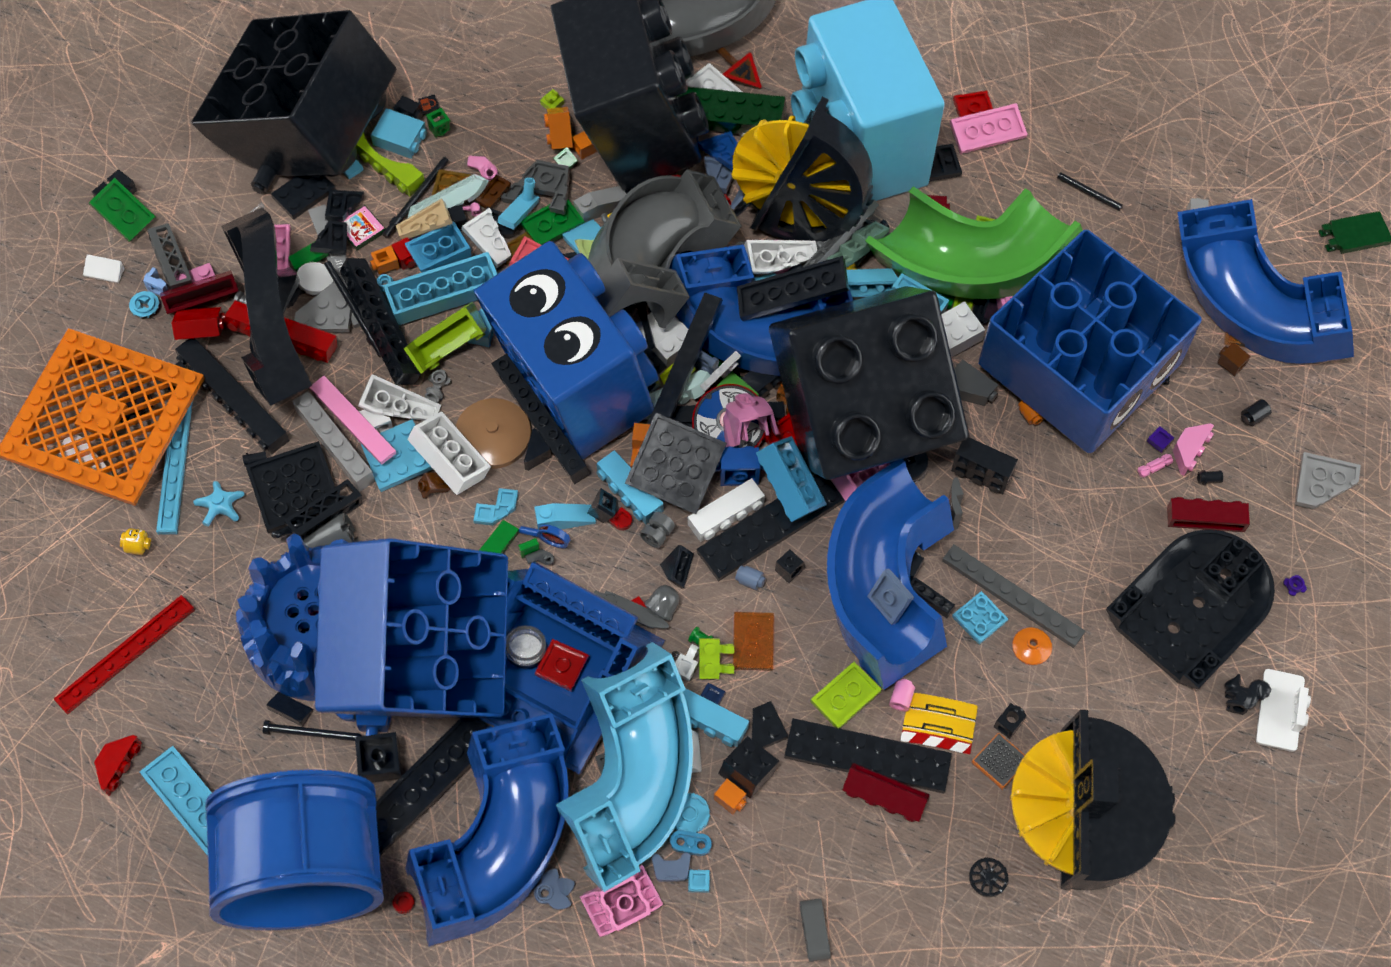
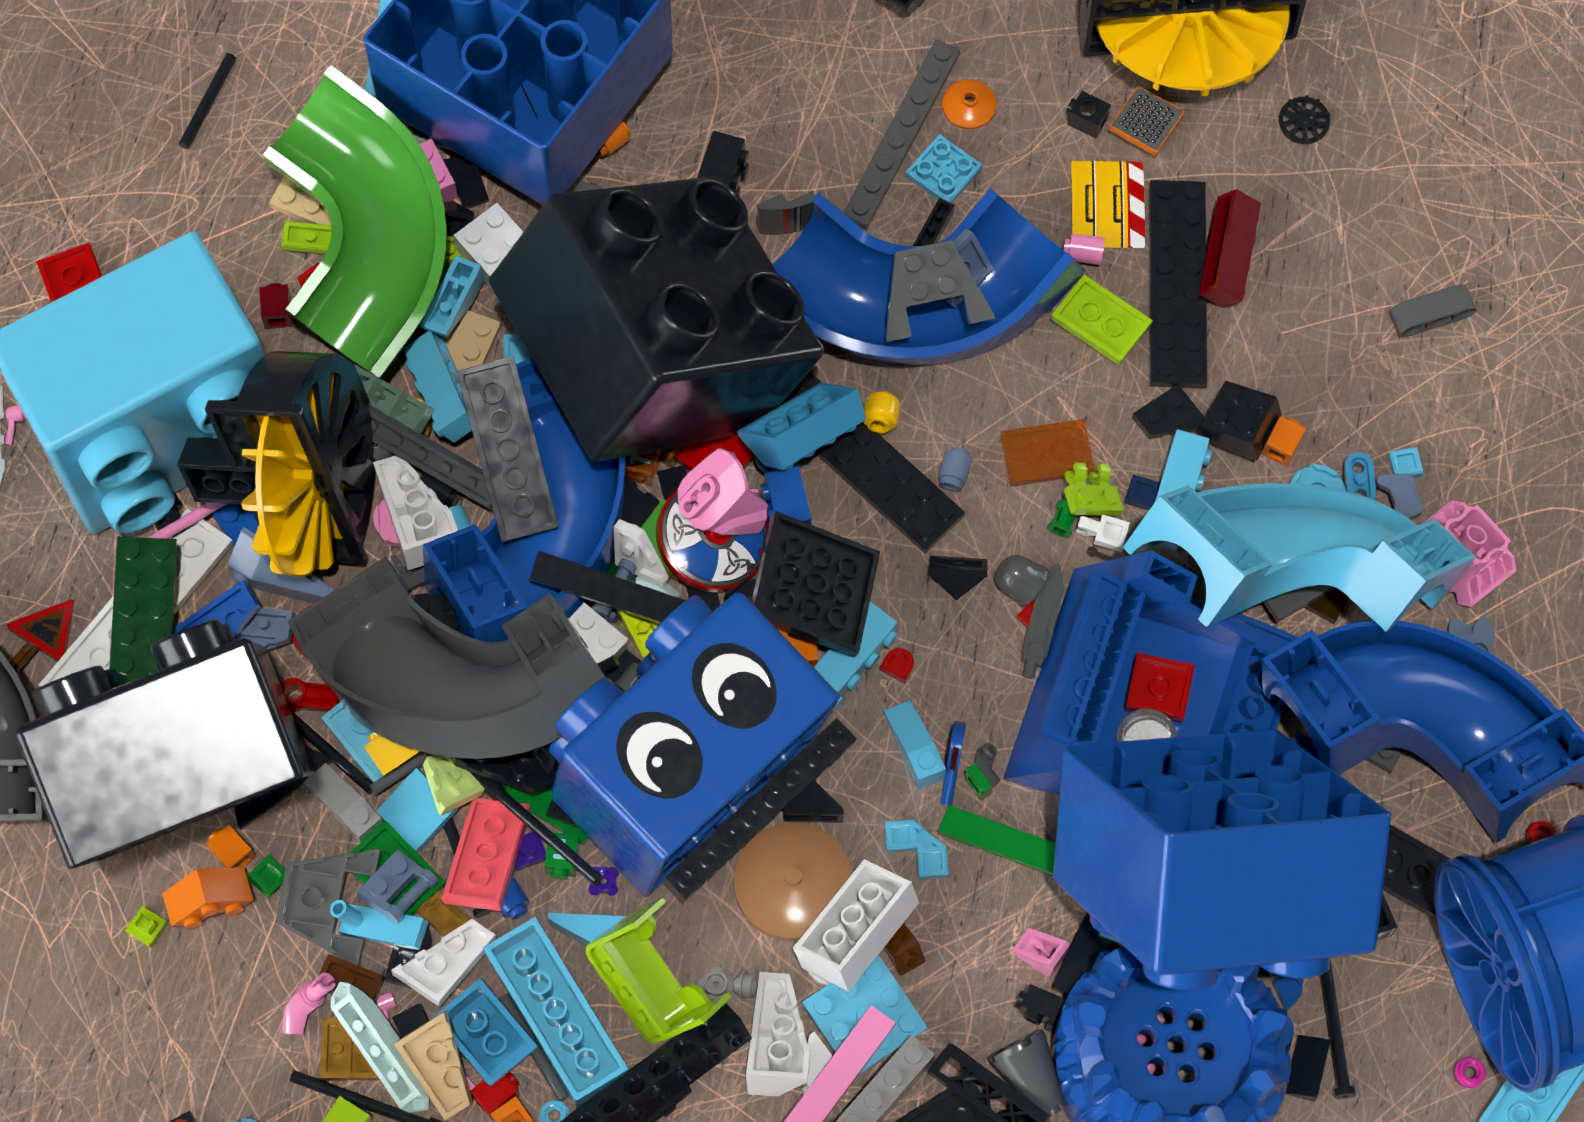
camera: 100 degrees left, 5 degrees up
(441, 126) = (228, 1096): green brick -> none
(542, 213) = (391, 881): none -> sand blue plate
(603, 506) = (887, 688): black slope -> none
(657, 529) = (900, 602): dark grey wheel -> none
(726, 510) = (855, 517): white brick -> none
(789, 566) = (927, 419): black brick -> none
(800, 539) = (881, 411): none -> yellow head
(879, 566) = (928, 276): none -> dark grey wing
(988, 128) = (106, 233): bright pink plate -> none

